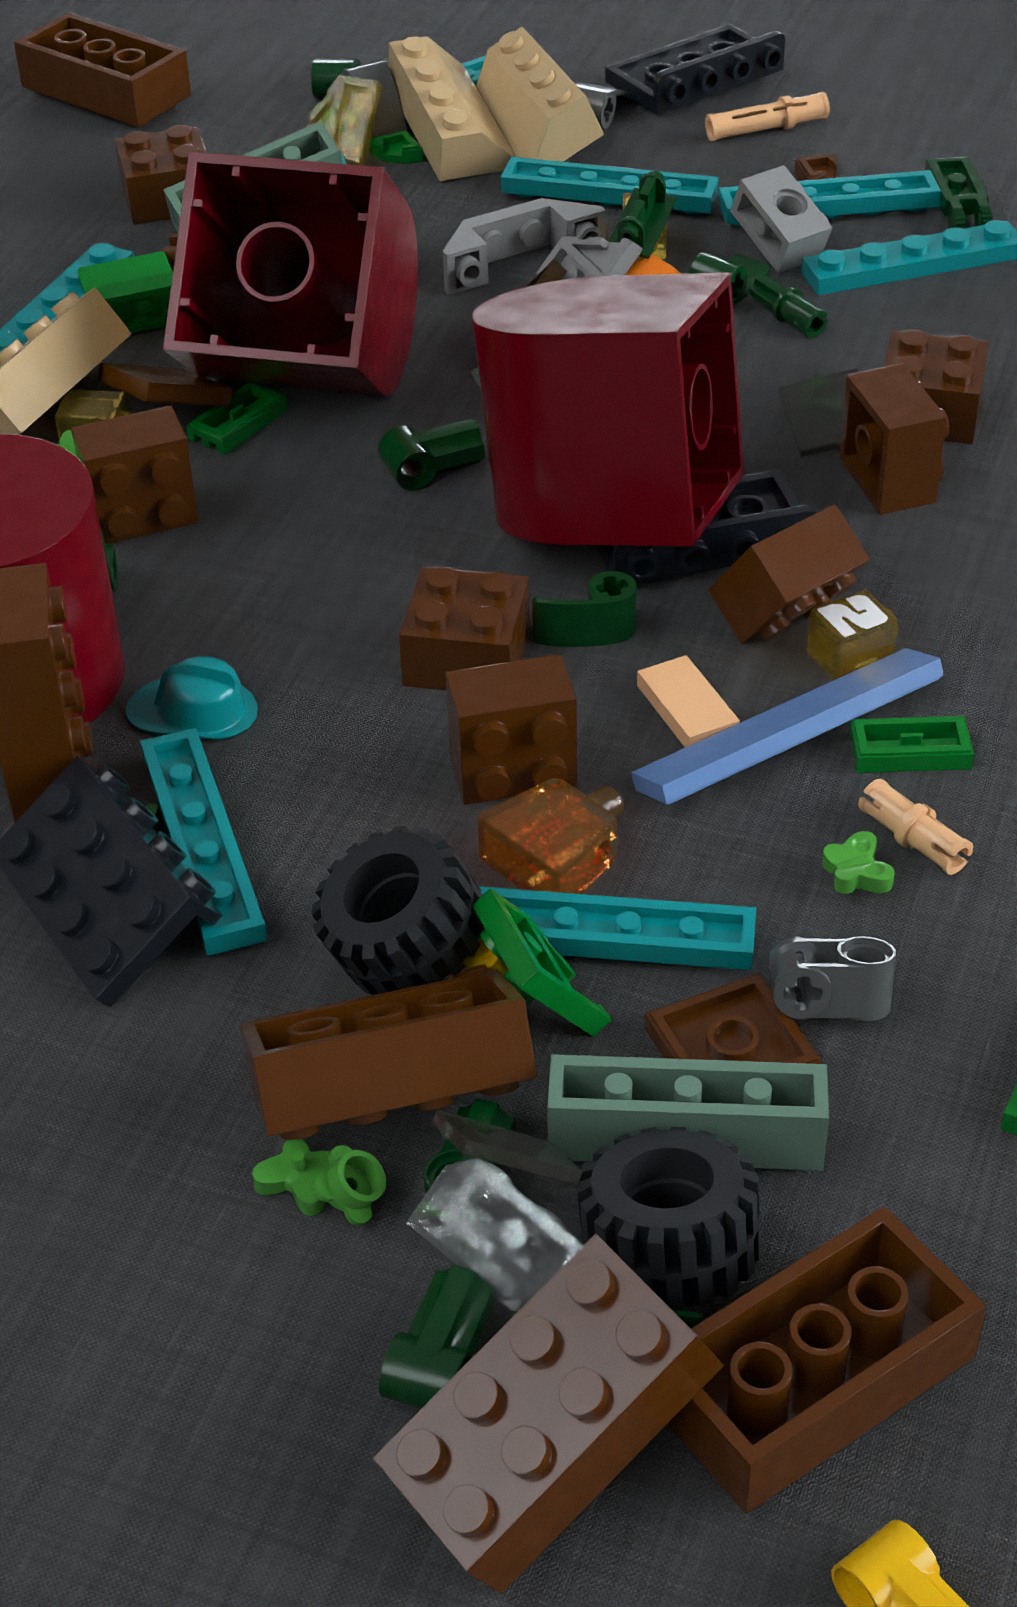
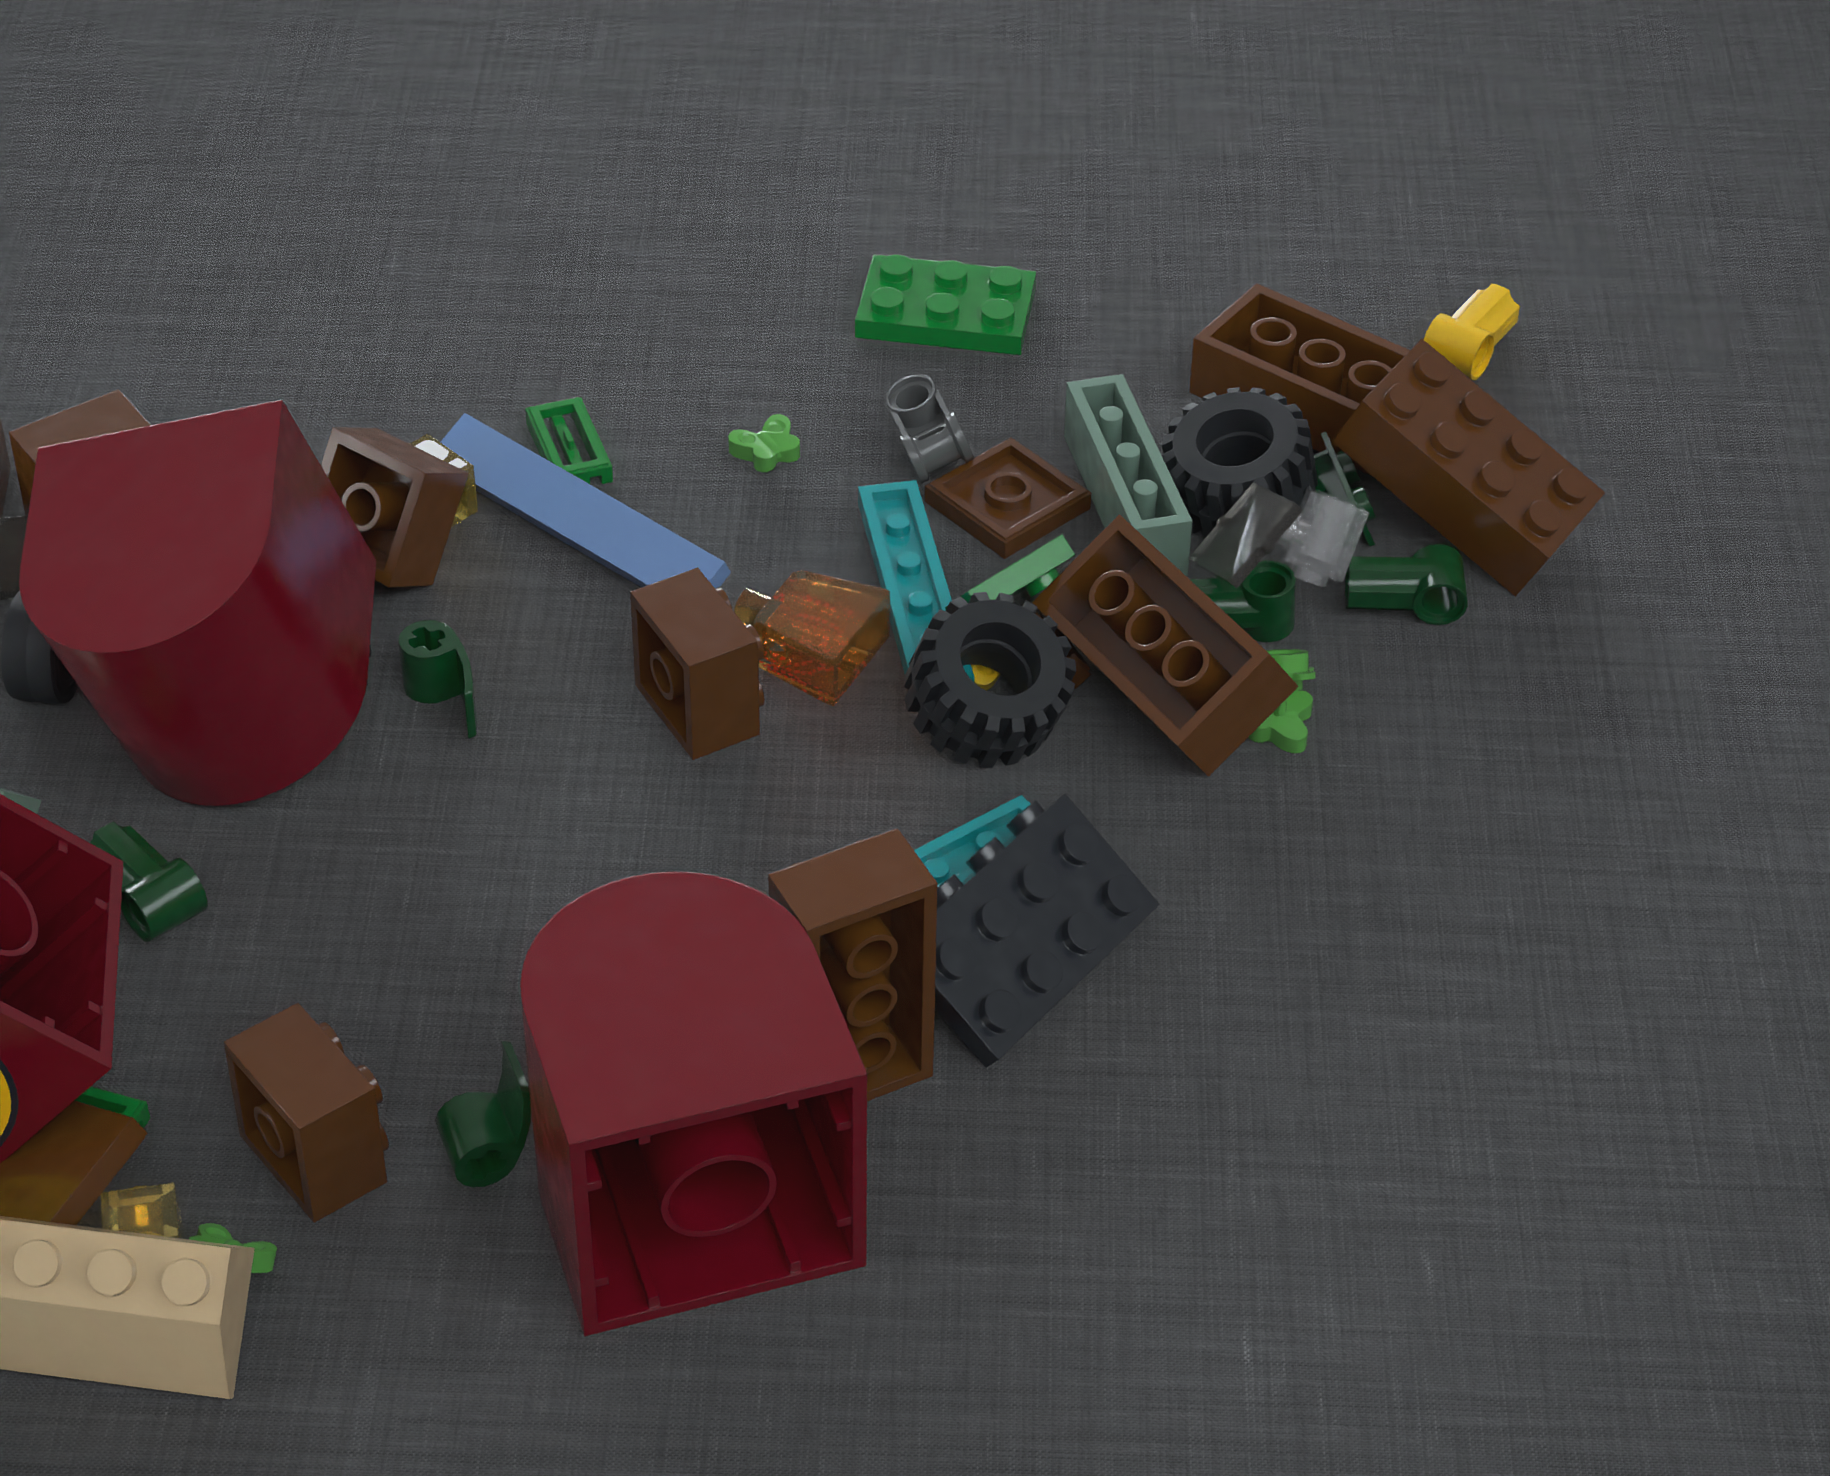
camera: 110 degrees left, 0 degrees up
(462, 623) = (512, 759): reddish brown brick -> none
(685, 700) = (557, 595): light nougat tile -> none
(915, 826) = (698, 419): light nougat pin -> none

